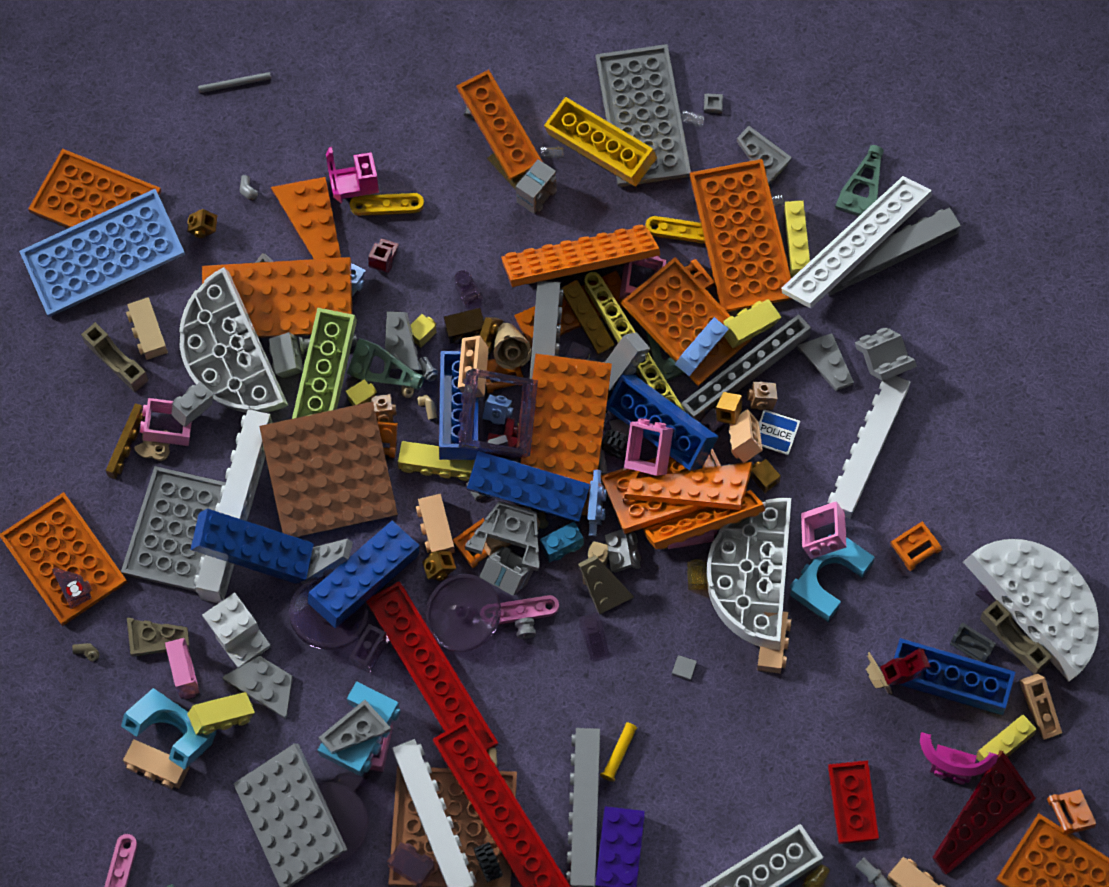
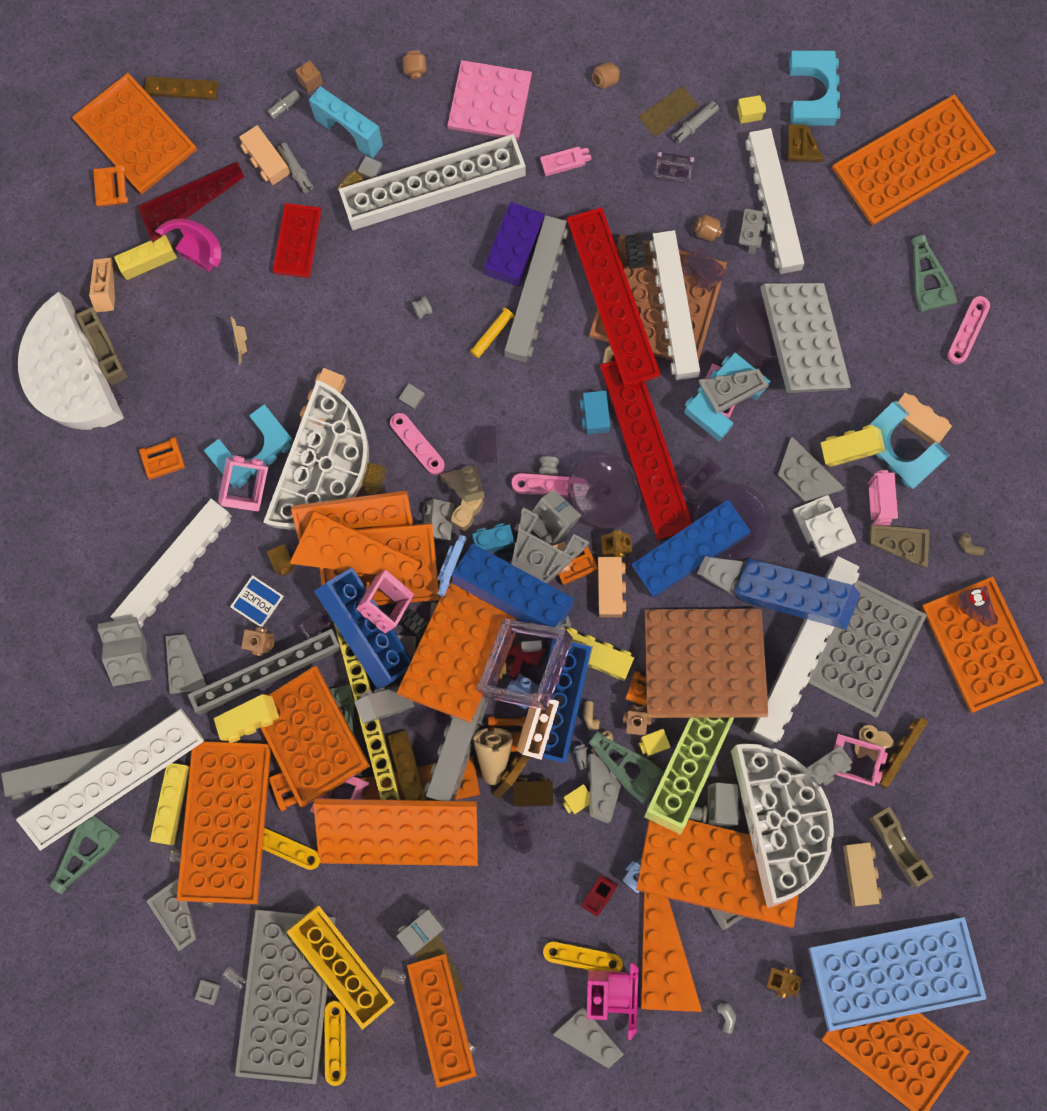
camera: 165 degrees left, 10 degrees up
(362, 142) = (589, 1039): none -> light grey wing
(490, 690) = (596, 412): none -> dark azure brick
(587, 86) = (335, 1043): none -> yellow plate
(664, 622) = (417, 444): none -> bright pink plate
(699, 760) = (422, 307): none -> light grey wheel
(701, 346) = (302, 698): light blue brick -> none
(729, 408) = (294, 629): pearl gold brick -> none
(745, 437) = (287, 594): light nougat brick -> none
(905, 669) = (212, 328): dark red brick -> none
(960, 678) = (172, 325): blue brick -> none
(972, 643) = (143, 353): dark grey hinge -> none

